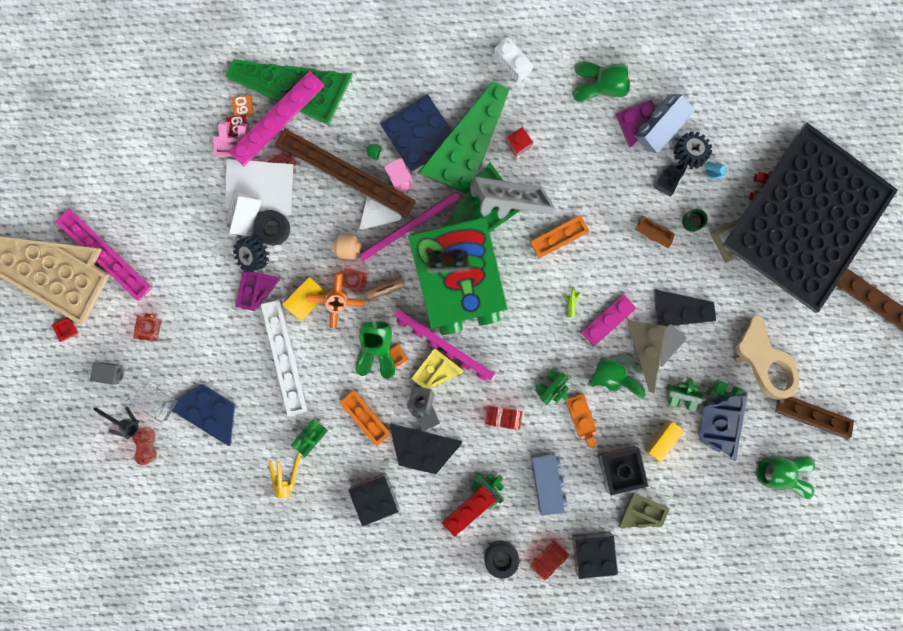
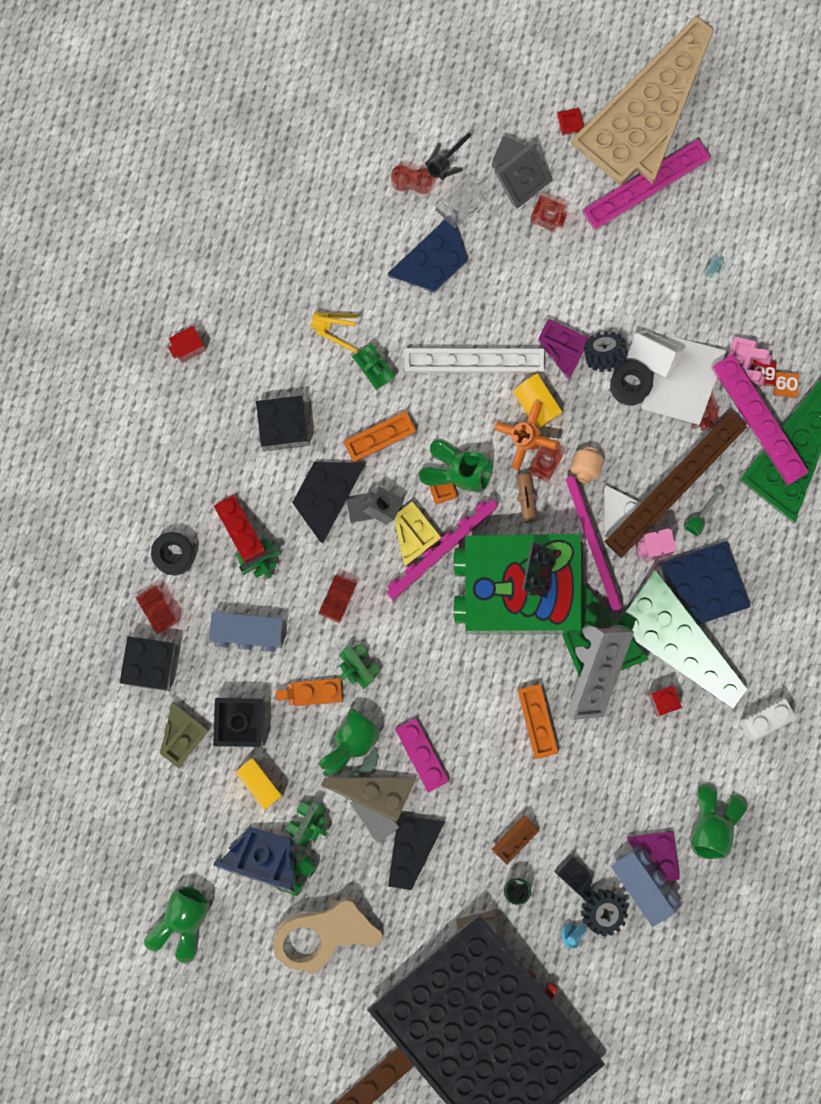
camera: 105 degrees right, 5 degrees down
(119, 356) = (523, 175): none -> dark grey plate
(159, 184) = (713, 267): none -> clear light blue tile
(328, 595) = (186, 345): none -> red brick
(571, 302) = (455, 716): lime bar -> none
(815, 417) = (240, 977): reddish brown plate -> none

